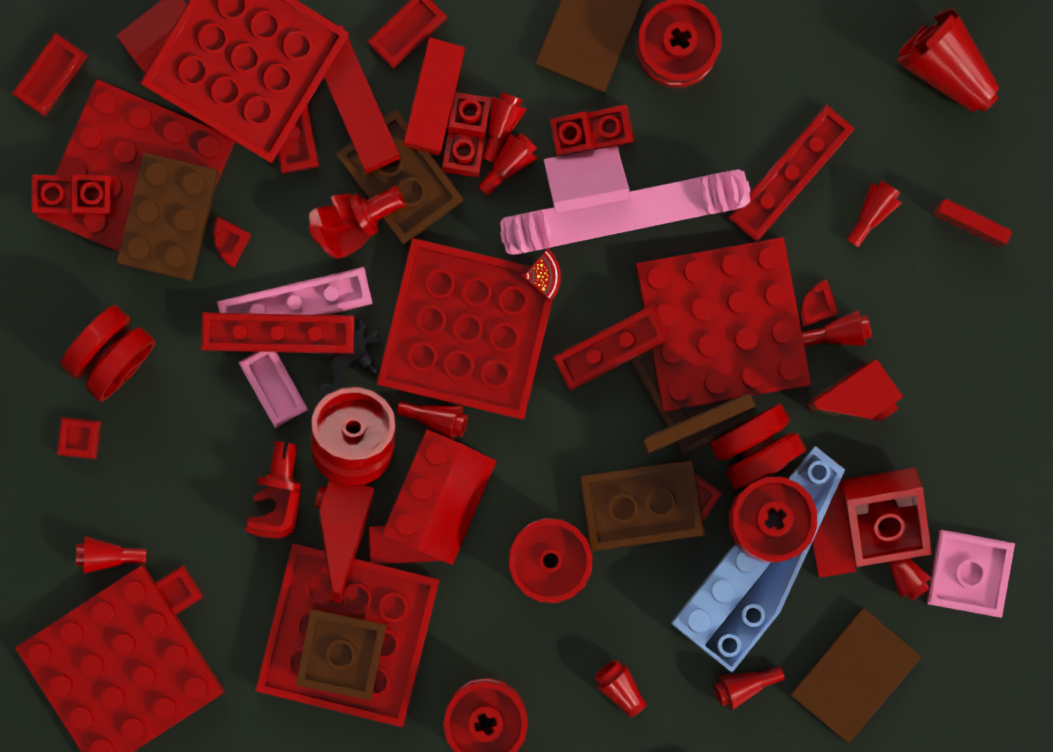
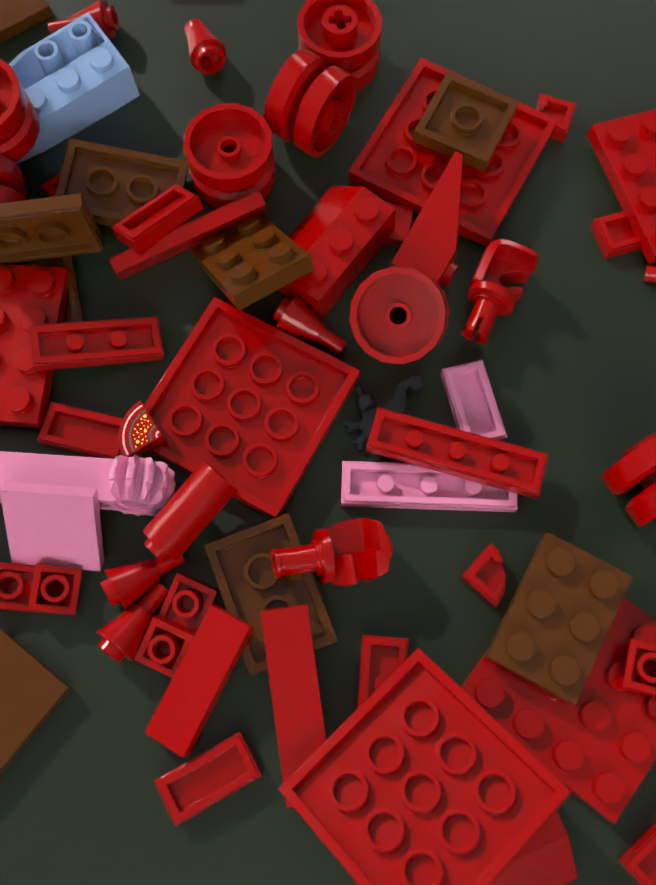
camera: 160 degrees left, 15 degrees down
(259, 706) = (559, 109): none -> red tile
(480, 219) = (188, 512): none -> red brick
(489, 631) = (310, 102): none -> red wheel
(498, 456) = (252, 260): none -> reddish brown plate
(565, 473) = (188, 235): none -> red tile
(593, 474) = (157, 218): none -> red tile
(597, 270) = (80, 431): none -> red tile

